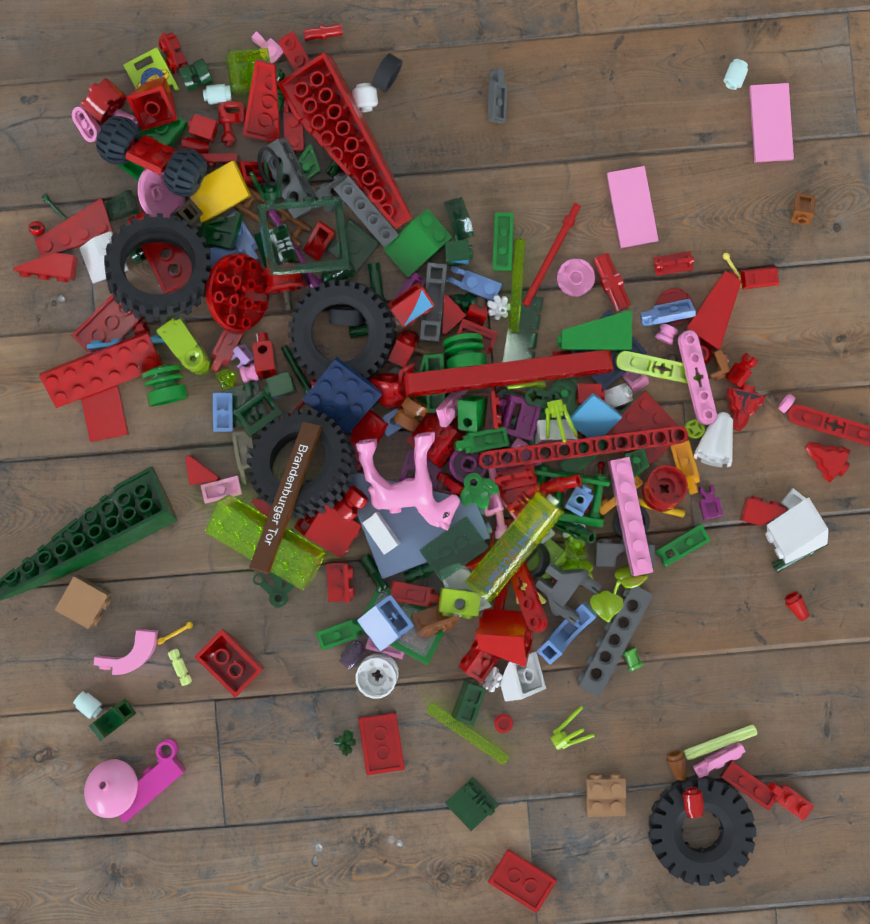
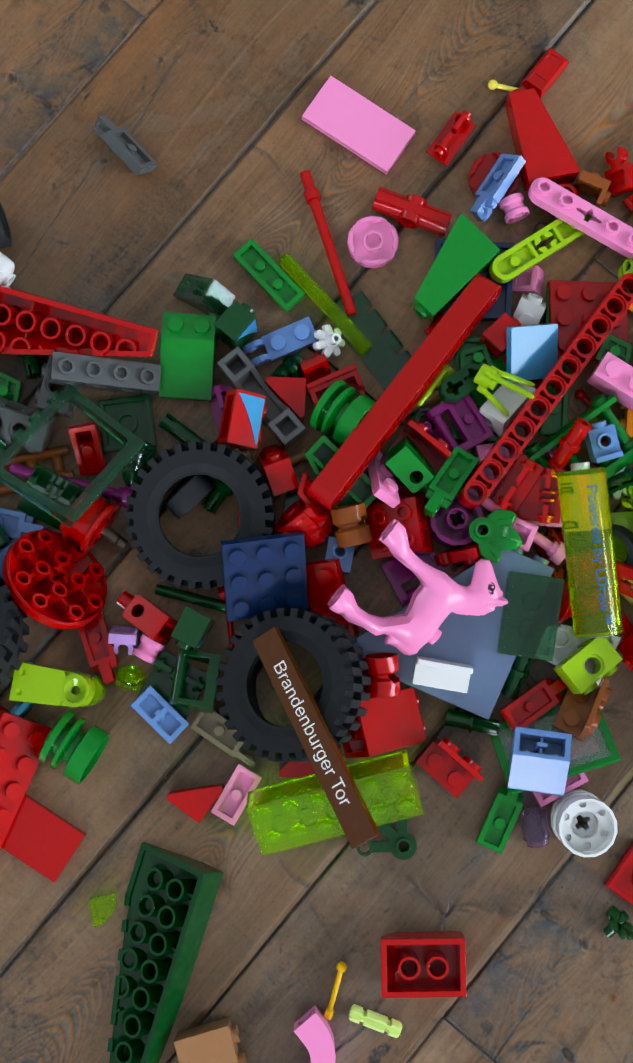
camera: 55 degrees left, 5 degrees down
(101, 478) = (102, 908): none -> clear neon green tile

